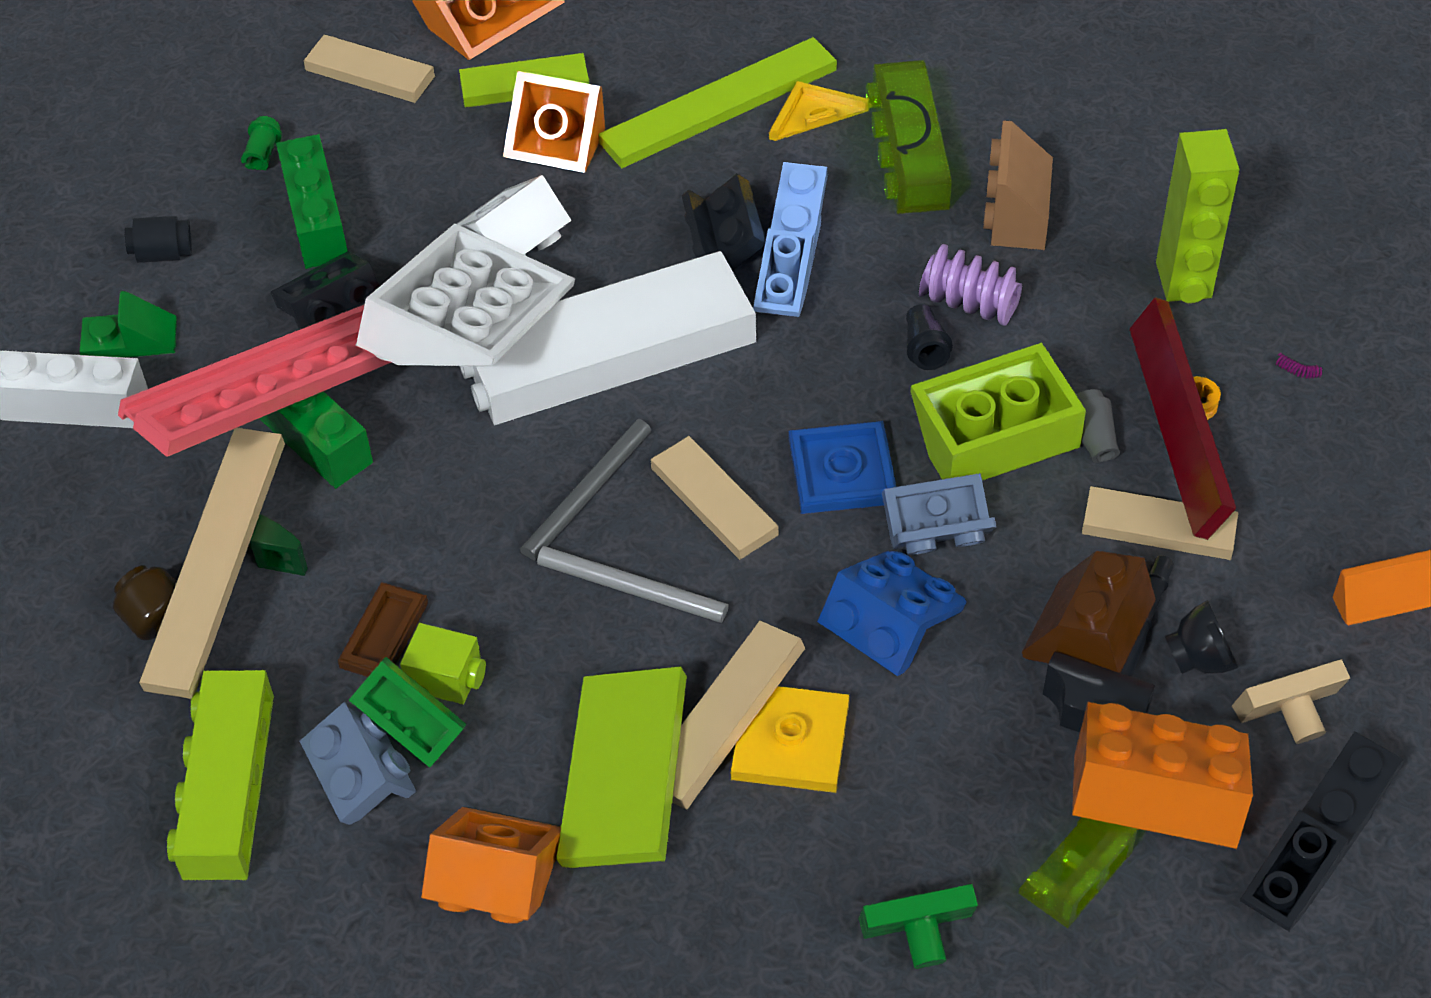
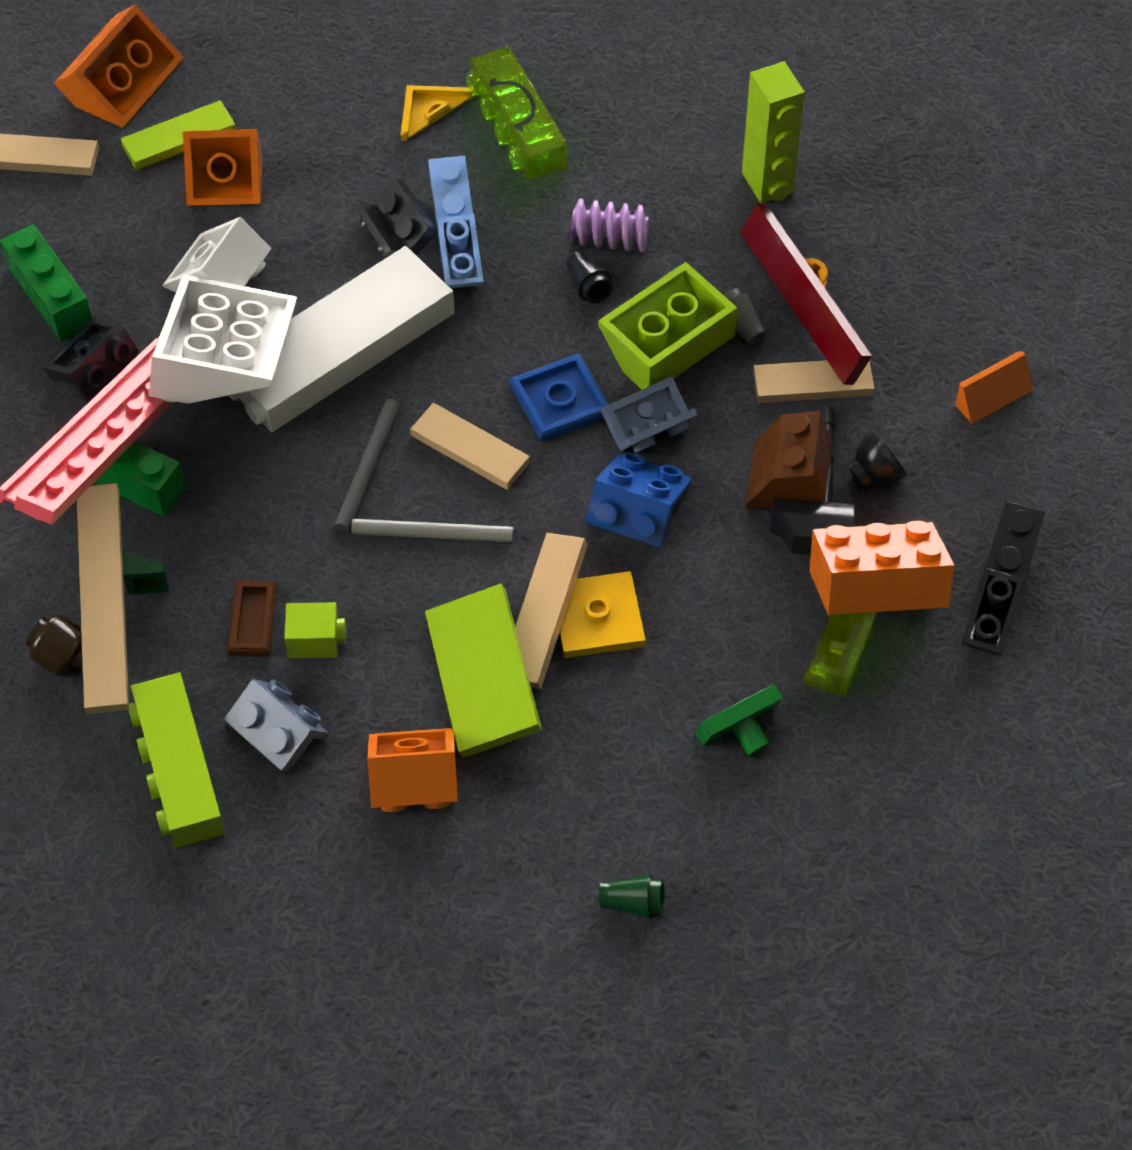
camera: 20 degrees left, 5 degrees up
(407, 712) = (304, 673): green tile -> none
(716, 102) = (347, 118): lime tile -> none
(1019, 190) = (622, 140): medium nougat slope -> none
(1294, 698) = (953, 488): tan tile -> none
(1301, 367) = (876, 232): magenta leg -> none

